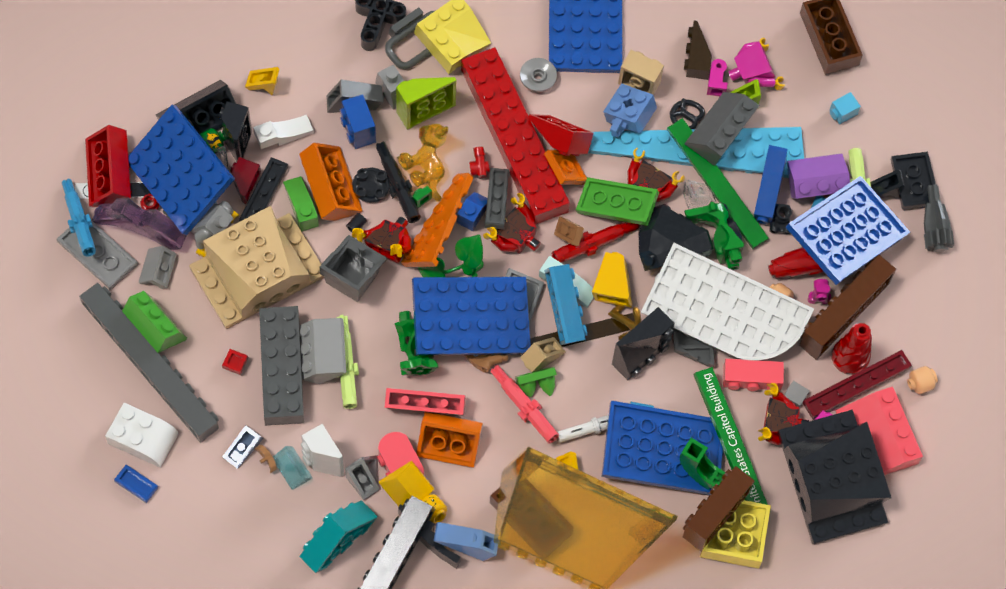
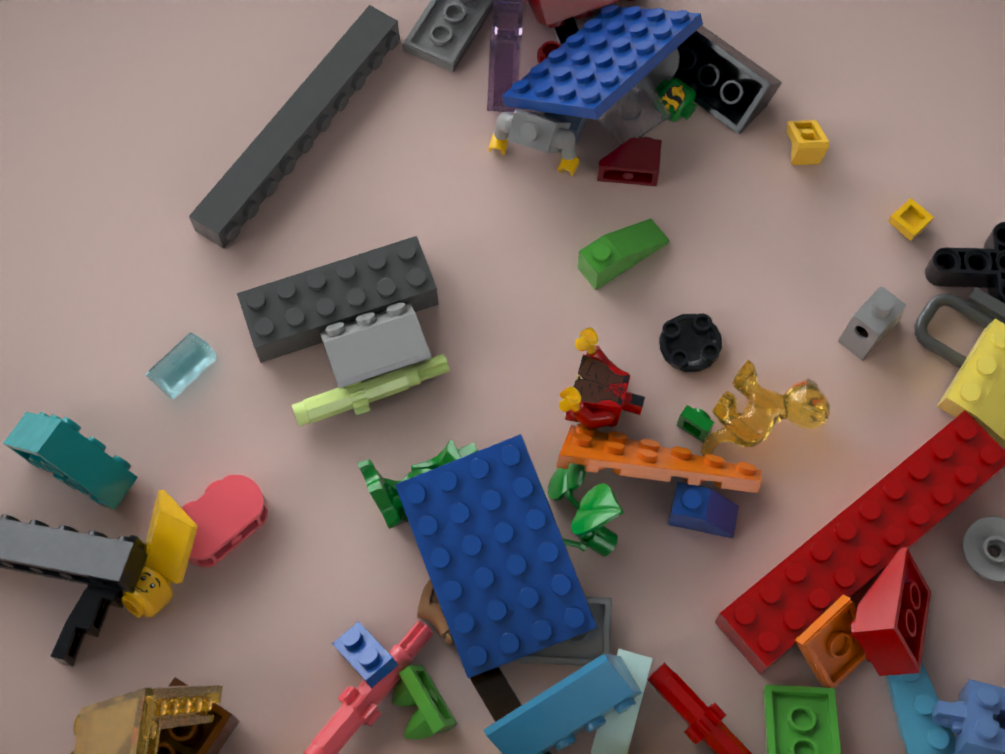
camera: 80 degrees right, 0 degrees up
(136, 483) = (110, 165): blue tile -> none
(141, 435) = (180, 147): white brick -> none
(152, 322) = (359, 109): bright green slope -> none
(158, 266) = (452, 95): light grey panel -> none
(235, 361) = (330, 235): red plate -> none
(236, 128) = (697, 117): black slope -> none
(242, 446) = (200, 287): slope -> none
(255, 265) = (496, 219): tan wedge -> none
(265, 188) = (622, 197): black tile -> none
(266, 457) = (182, 329): medium nougat piece -> none
(282, 132) = (730, 190): white slope -> none
(322, 452) = (192, 390): white slope -> none
(330, 181) = (672, 281): orange slope -> none
(333, 44) = (910, 219): none -> yellow plate
(347, 89) = (832, 274): dark grey slope -> none
(352, 267) = (524, 346): dark grey piece -> none
(357, 221) = (615, 339): black hinge -> none
(358, 122) = (787, 286): blue brick -> none
(364, 476) = (183, 470): light grey slope -> none
(399, 187) = (700, 384): black piece -> none
(424, 98) = (865, 370): lime slope -> none
(425, 401) = (329, 528): coral brick -> none
(449, 439) = (278, 585): orange slope -> none
(466, 540) = (89, 655): medium blue slope -> none
(480, 166) = (786, 500): red plate -> none
(497, 198) = (732, 542): dark grey tile -> none
(502, 400) = (365, 654): none -> plate
(517, 231) = (686, 590): torso -> none
(542, 354) = (469, 697): tan slope -> none
(569, 231) = (713, 682): medium nougat hinge -> none

